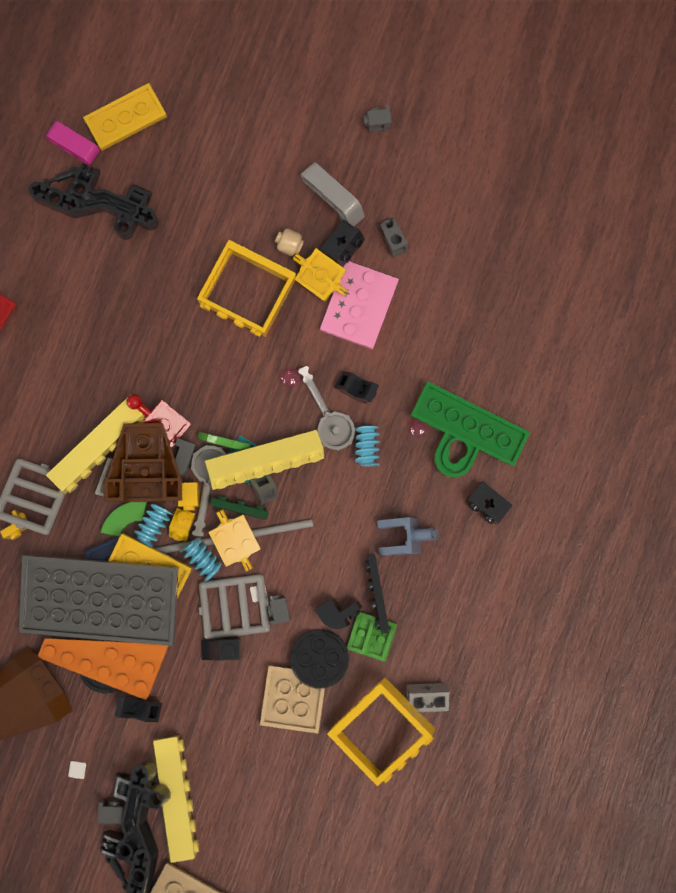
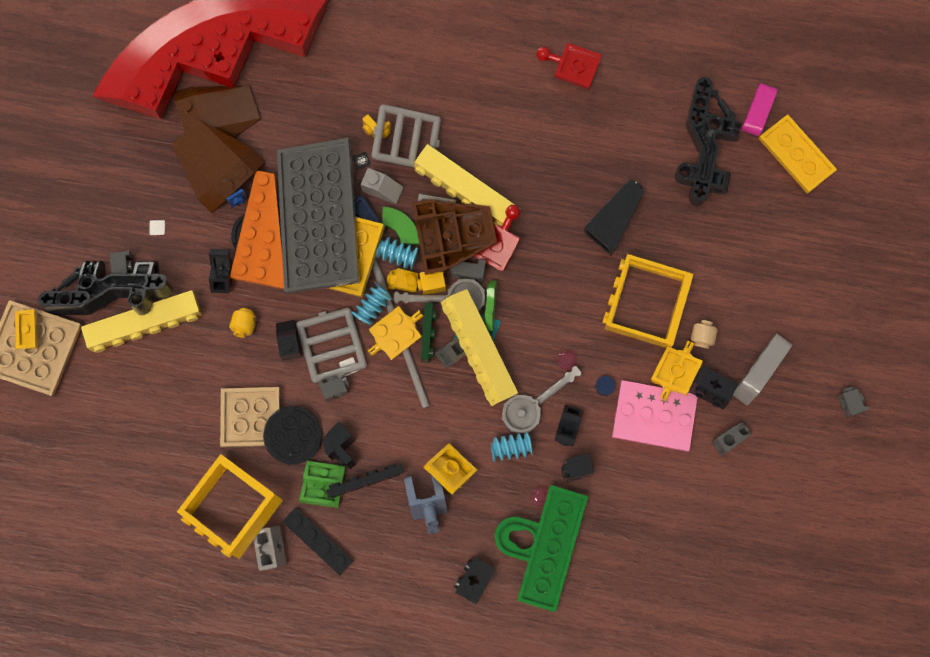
camera: 80 degrees right, 5 degrees down
(46, 547) = (361, 160): none -> black sticker
(64, 680) = (237, 198): none -> blue bracket
(79, 530) = (381, 186): none -> light grey slope
(160, 307) = (612, 220): none -> black slope
(196, 693) = (243, 322): none -> yellow head
(322, 345) = (605, 385): none -> dark blue tile
(380, 507) = (450, 468): none -> yellow plate
(399, 386) = (577, 468): none -> black brick
(426, 649) = (317, 541): none -> black plate

